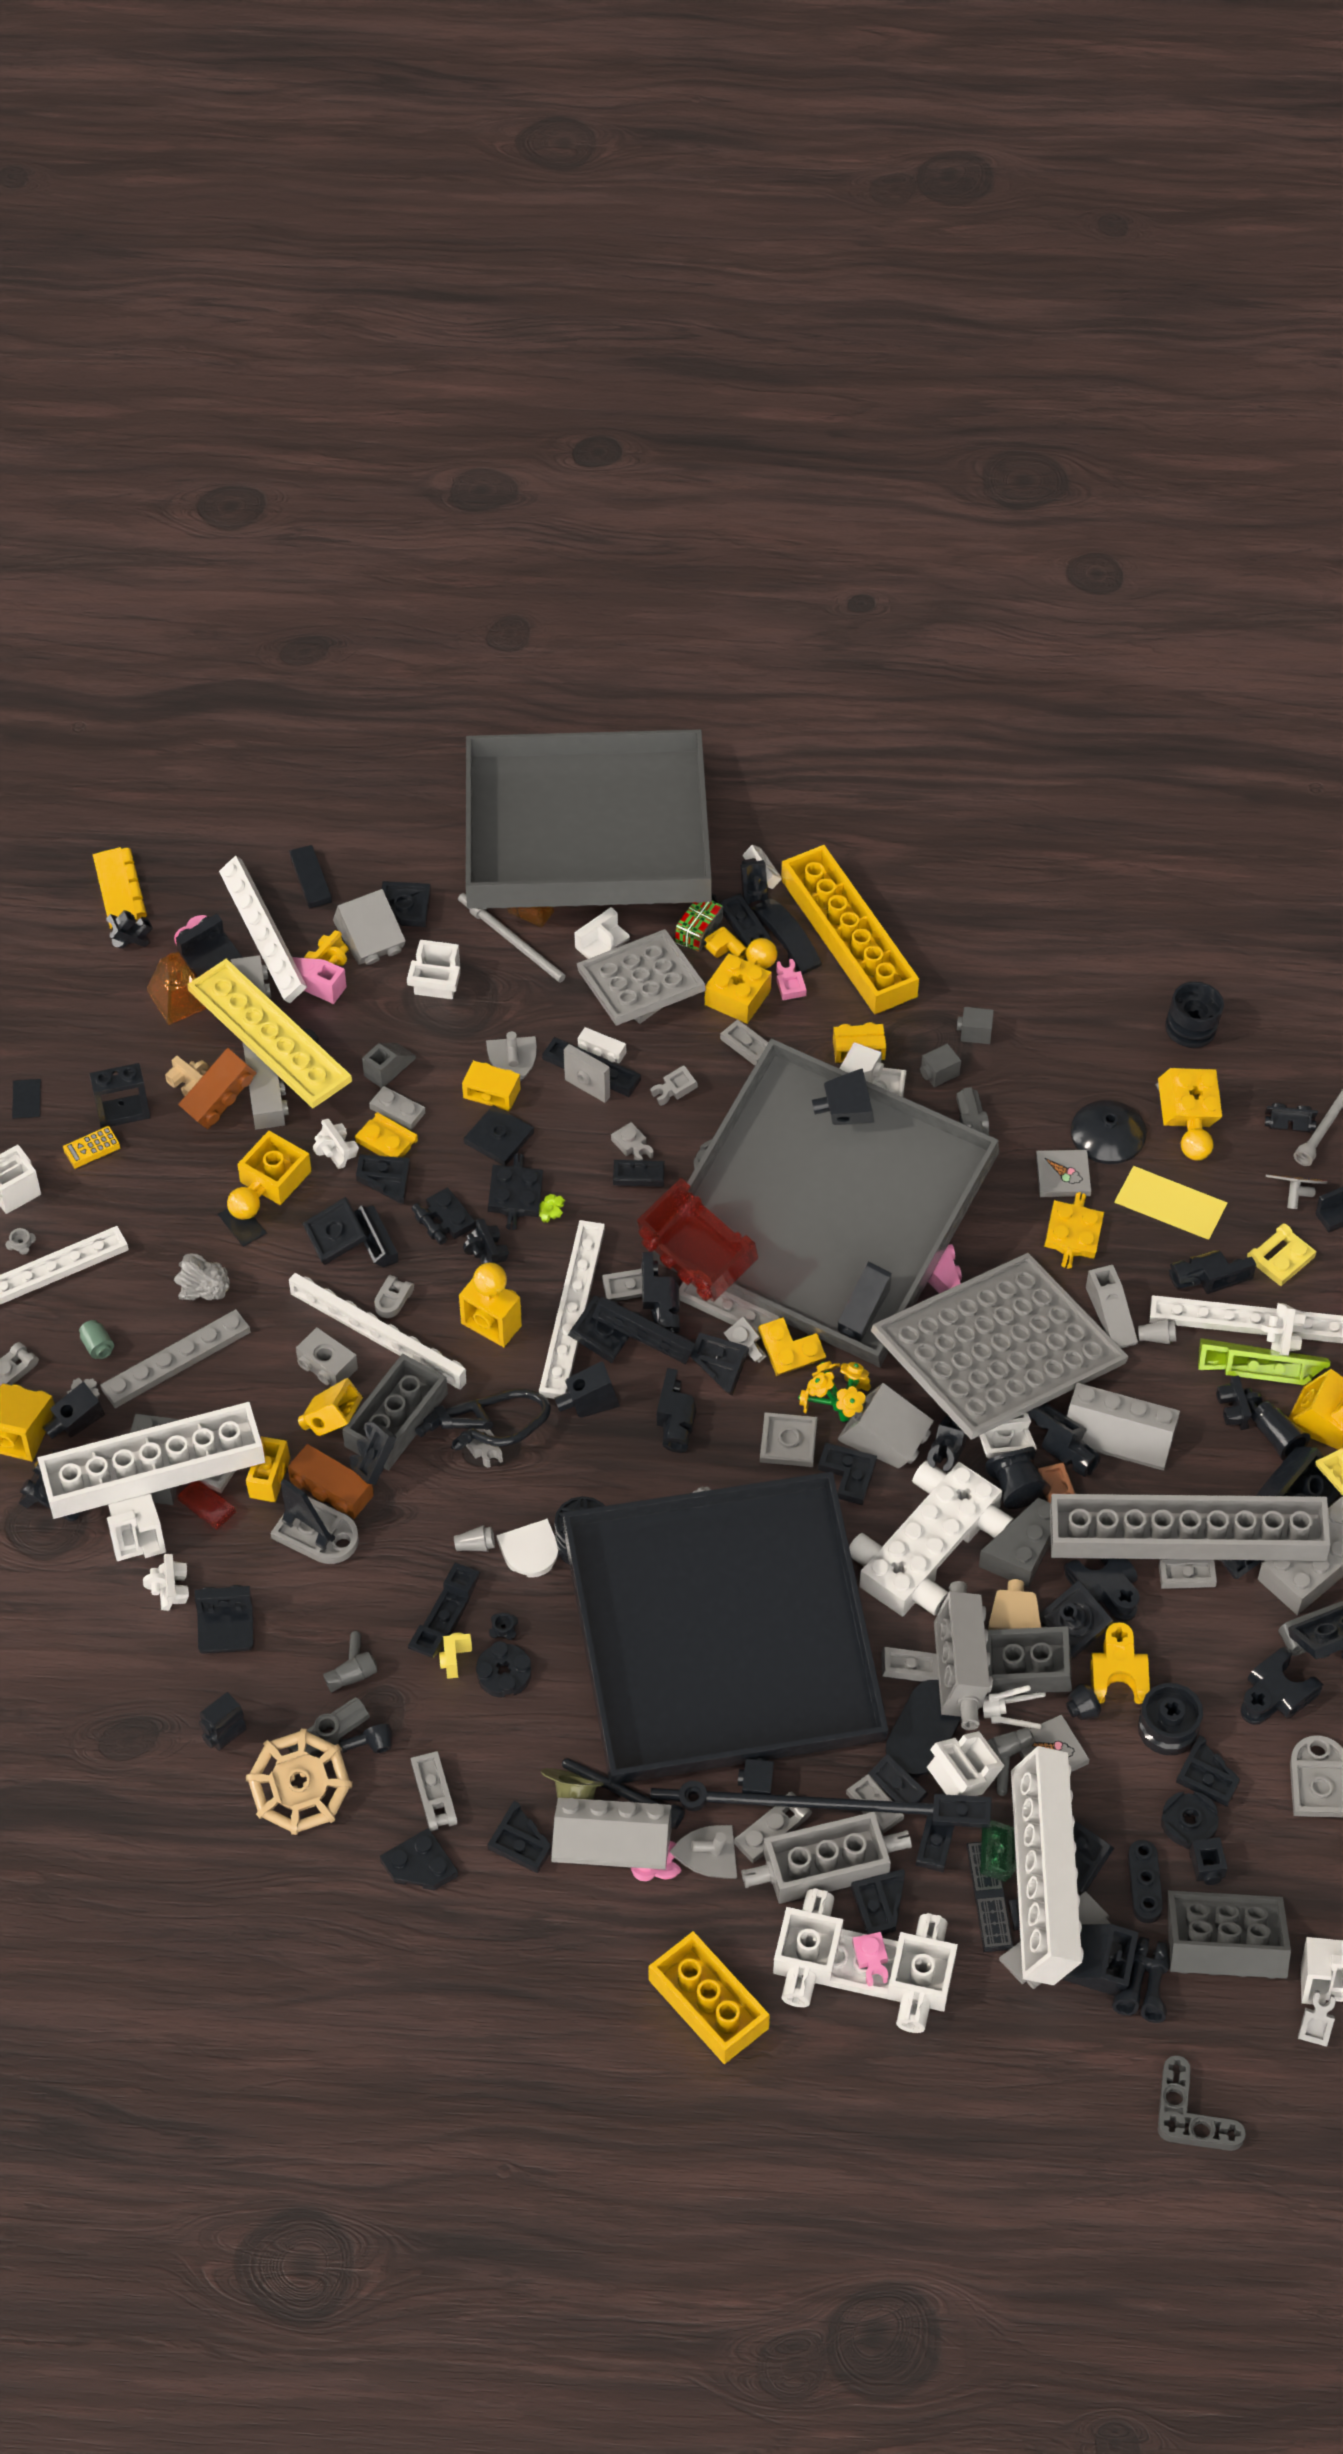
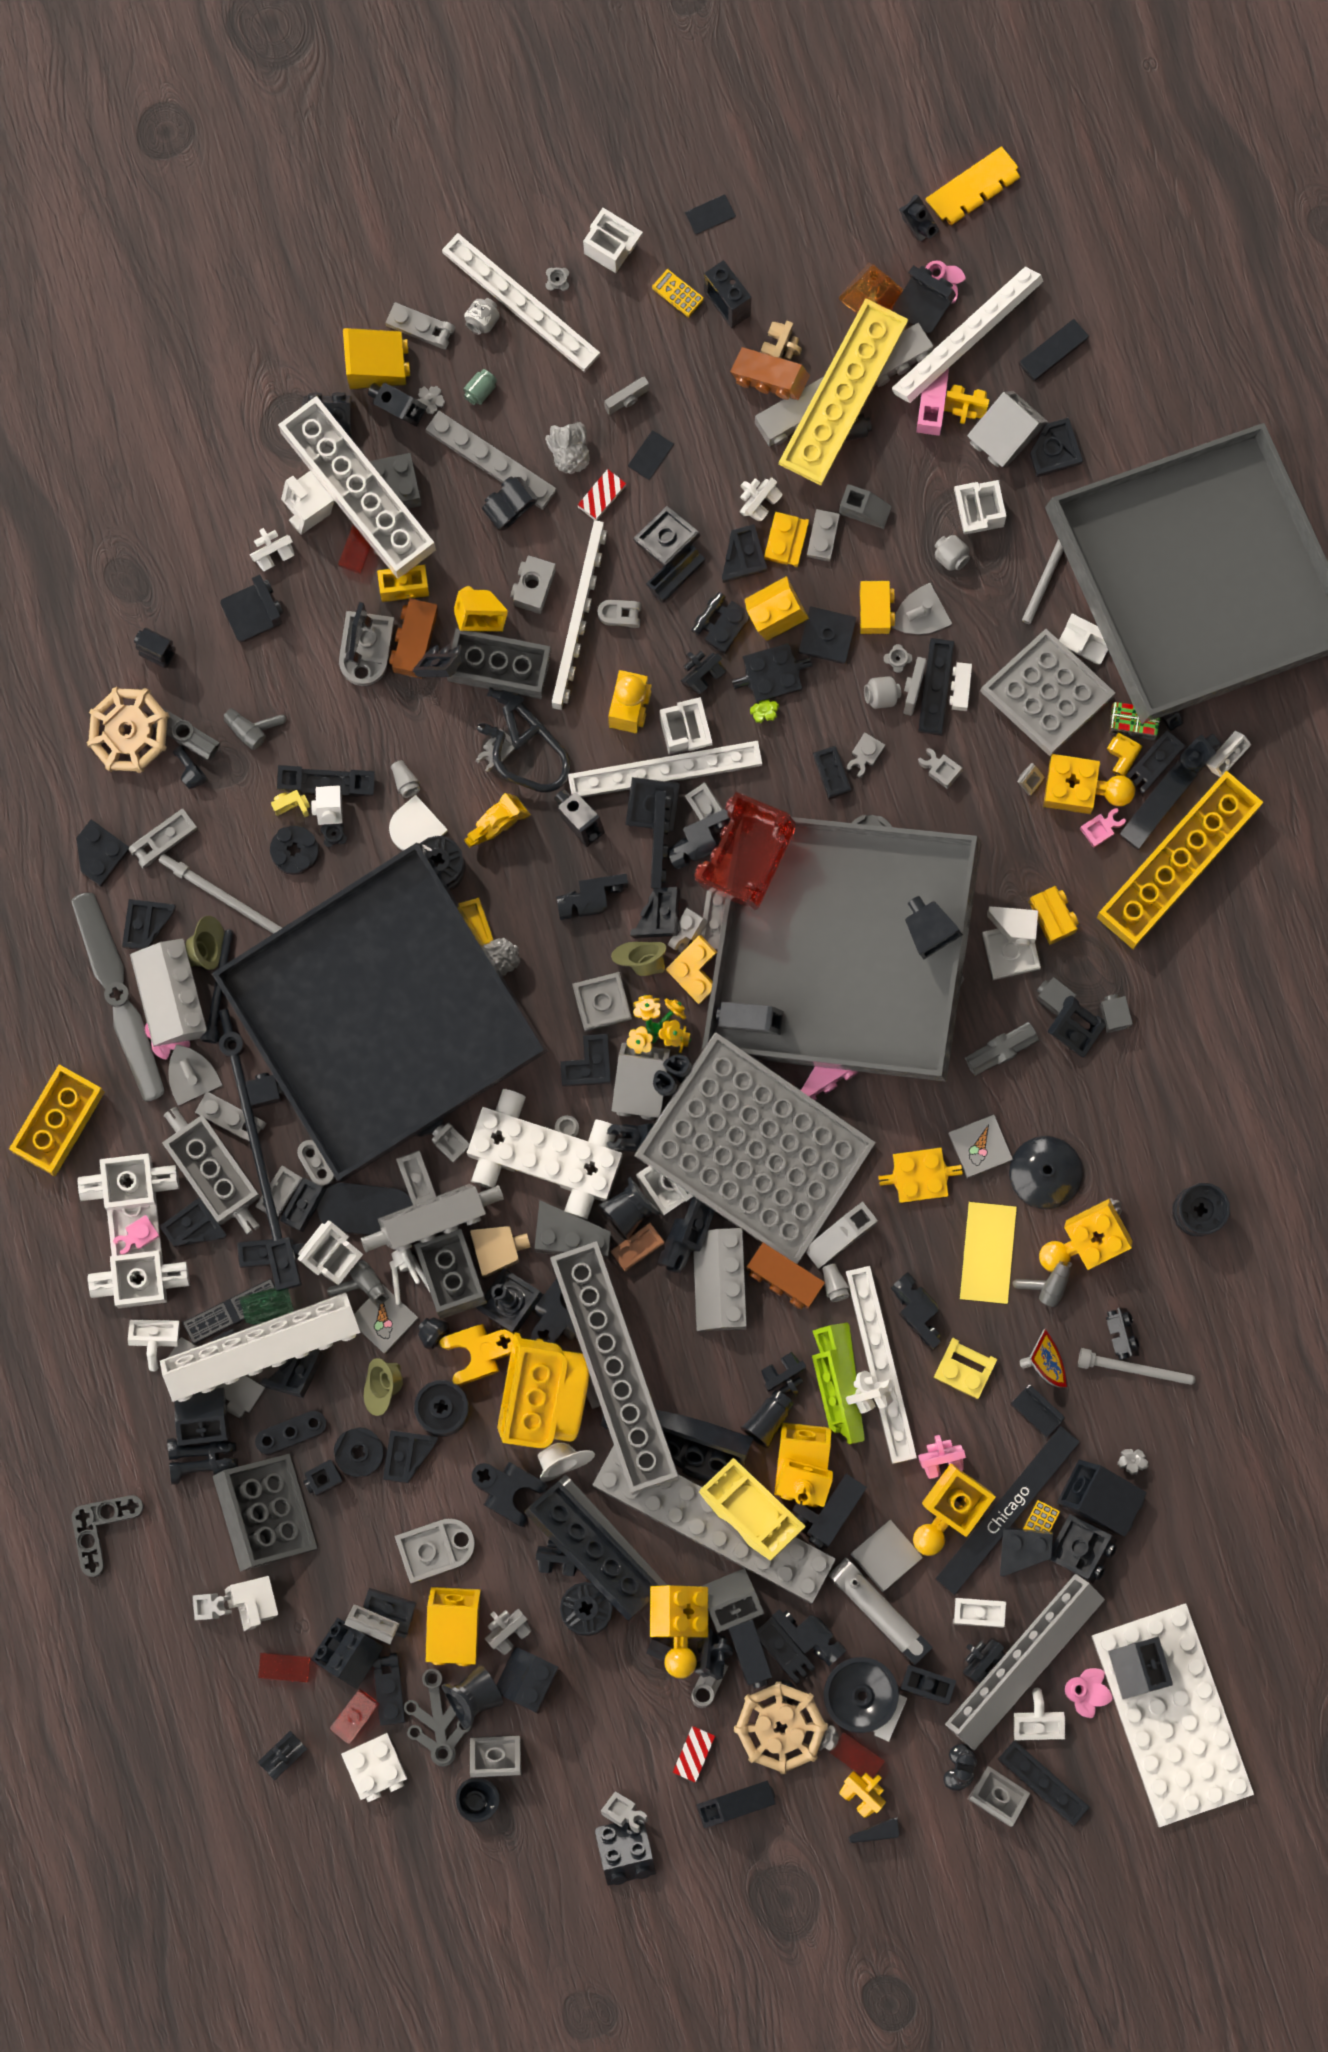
camera: 70 degrees right, 25 degrees up
(23, 1313) = (481, 316): none -> light grey head
(175, 1218) = (627, 396): none -> light grey plate
(231, 1348) = (509, 503): none -> black brick
(262, 1275) = (601, 495): none -> tile
(270, 1170) = (700, 444): yellow brick -> none
(453, 1157) = (775, 609): none -> yellow slope
(468, 1008) = (952, 552): none -> light grey head
(472, 1614) = (328, 805): none -> white brick
(478, 1784) = (182, 871): none -> light grey bar
(538, 1274) = (685, 726): none -> white plate
(546, 1081) = (898, 651): none -> light grey plate
(559, 1461) = (497, 819): none -> yellow piece
(578, 1106) = (882, 692): none -> light grey head
(619, 1894) = (110, 973): none -> dark grey piece
(715, 1020) = (1030, 779): none -> light grey slope
(744, 1041) = (1014, 814): light grey plate -> none
(758, 1387) = (642, 957): none -> olive piece
(855, 1756) = (314, 1164): none -> light grey plate
(883, 1622) = (449, 1141): none -> light grey bracket
(903, 1386) = (676, 1065): none -> black piece
(904, 1510) = (567, 1125): none -> light grey plate
(978, 1055) = (1072, 1033): none -> black plate
(988, 1979) = (153, 1334): none -> white plate
(1126, 1771) = (381, 1384): none -> olive piece
(1138, 1368) = (784, 1277): none -> dark orange brick
(1190, 1610) = (542, 1394): none -> yellow brick
(1228, 1157) = (1052, 1288): none -> dark grey piece
(1259, 1627) = (561, 1459): none -> white piece

